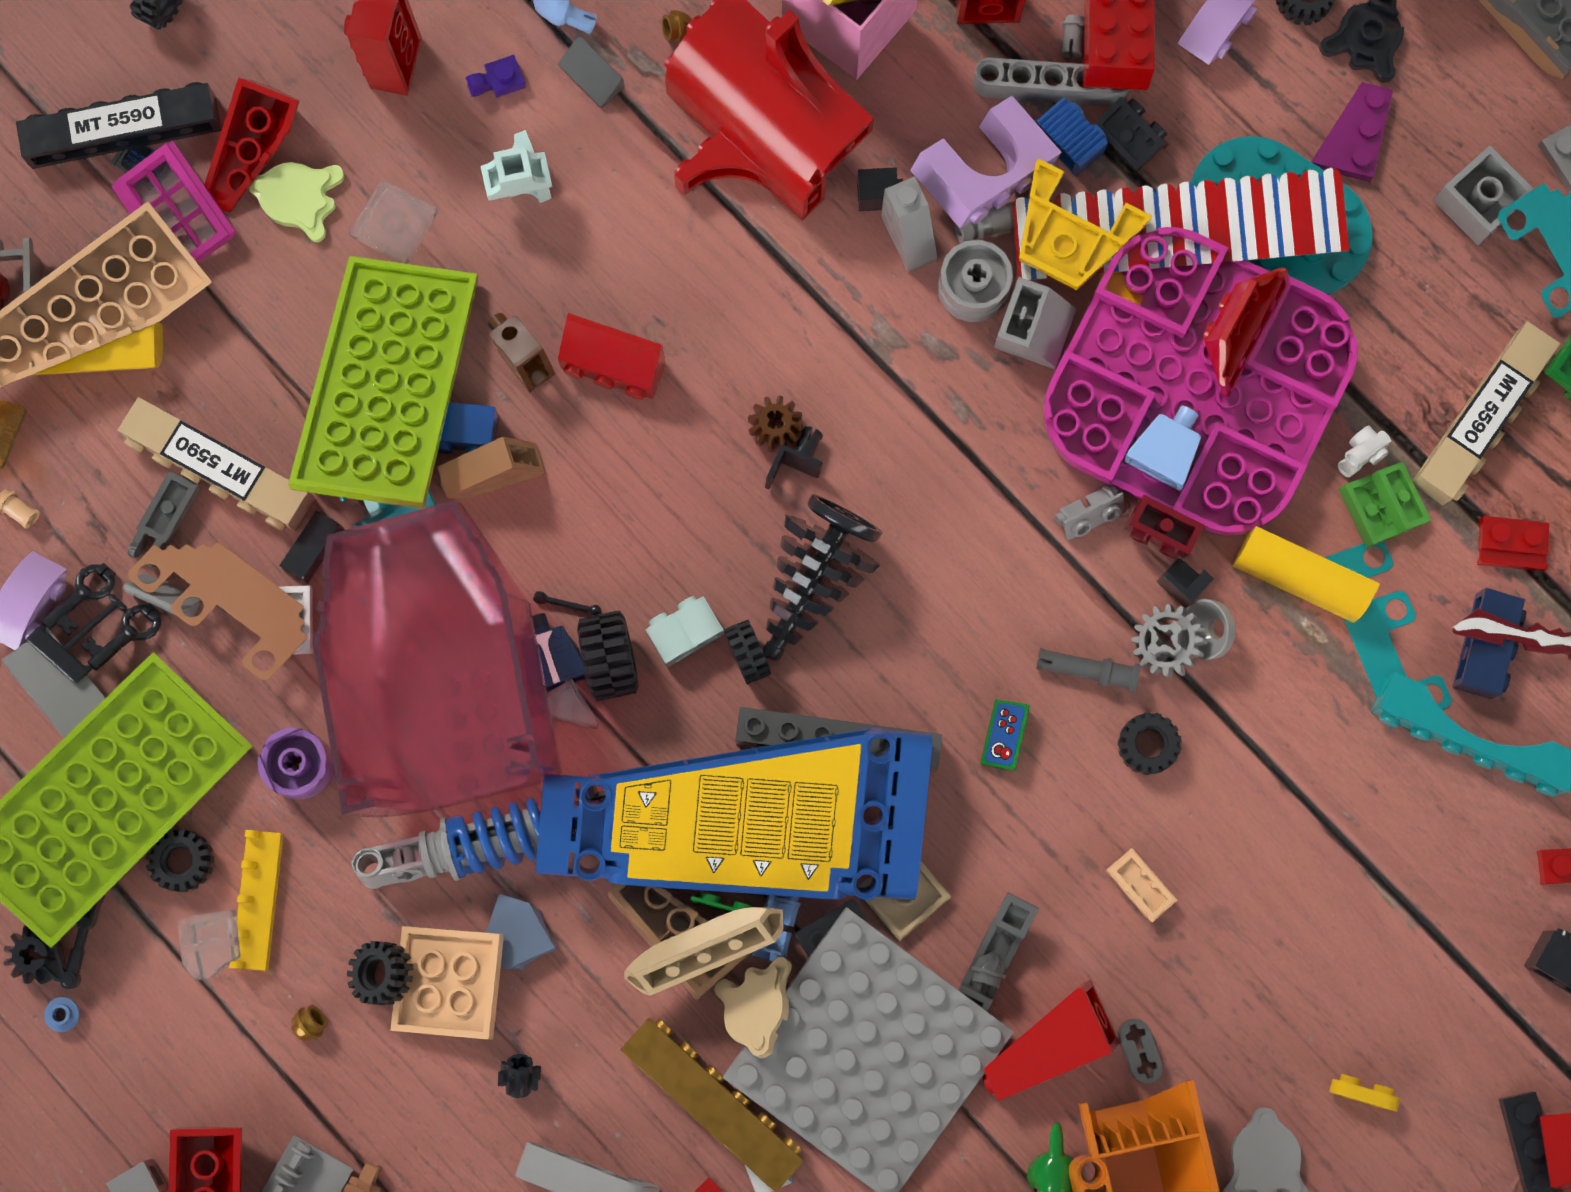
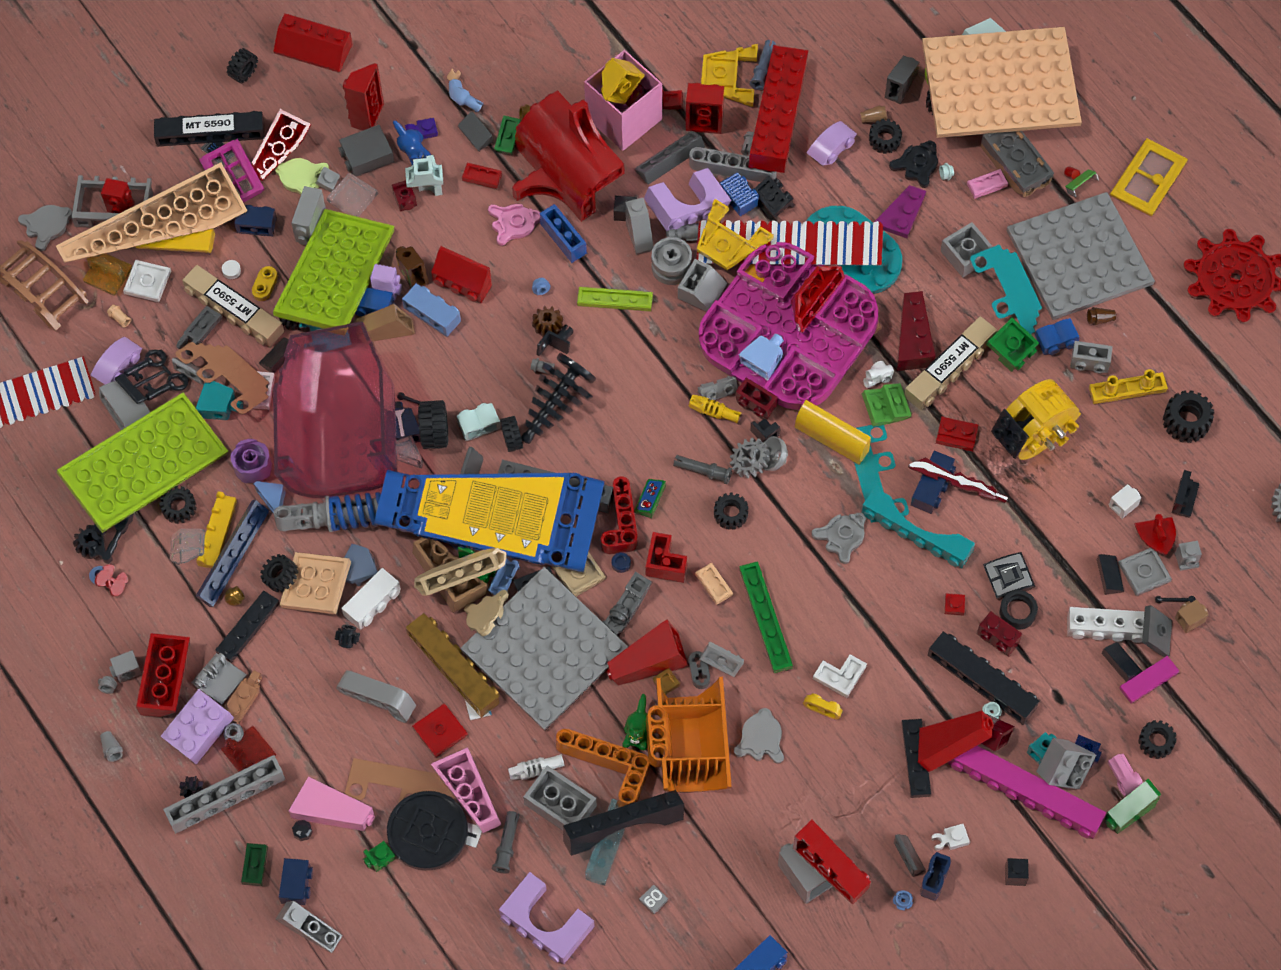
camera: 10 degrees right, 15 degrees down
(55, 434) = (147, 281): none -> white plate
(73, 1025) = (105, 578): none -> piece
(202, 392) = (231, 269): none -> white tile
(216, 654) = (216, 401): none -> teal torso
(232, 294) = (257, 221): none -> dark blue brick
(266, 410) = (265, 282): none -> yellow plate
(291, 943) = (232, 553): none -> dark blue plate
(320, 274) = (307, 214): none -> light grey brick
(340, 1075) = (247, 626): none -> black plate
(345, 197) = (327, 179): none -> light grey plate
(347, 829) = (271, 494): none -> medium blue slope
(404, 134) = (366, 151): none -> dark grey brick
(480, 110) = (410, 142): none -> blue animal
(480, 386) = (386, 279): none -> lavender brick
(489, 225) = (404, 196): none -> dark red brick
(551, 998) = (371, 599): none -> white brick
(569, 426) = (431, 309): none -> medium blue brick
(616, 156) = (482, 175): none -> red plate
(649, 73) = (506, 137): none -> green plate
(685, 238) = (513, 222): none -> bright pink tile
(685, 724) = (472, 462): none -> dark grey slope
(752, 357) = (540, 286): none -> medium blue plate
(777, 252) = (563, 233): none -> blue brick
(778, 509) = (536, 365): none -> light grey pin
(885, 362) = (615, 299): none -> lime tile
(938, 78) = (669, 157): none -> dark grey slope
(960, 776) = (622, 514): none -> red beam
(973, 864) = (621, 562): none -> dark blue tile
(1044, 862) = (661, 562): none -> red brick
(1087, 1083) = (668, 681): none -> pearl gold plate
(1089, 552) = (713, 408): none -> yellow hinge
(1180, 1032) = (721, 659): none -> light grey plate
(1240, 937) = (765, 617): none -> green plate
(1348, 760) = (842, 534): none -> light grey tile
(1390, 1038) = (840, 680): none -> white plate
(1416, 365) = (915, 337): none -> dark red wedge
(1421, 48) = (946, 171): none -> light aqua plate
(1495, 63) = (987, 183): none -> bright pink plate

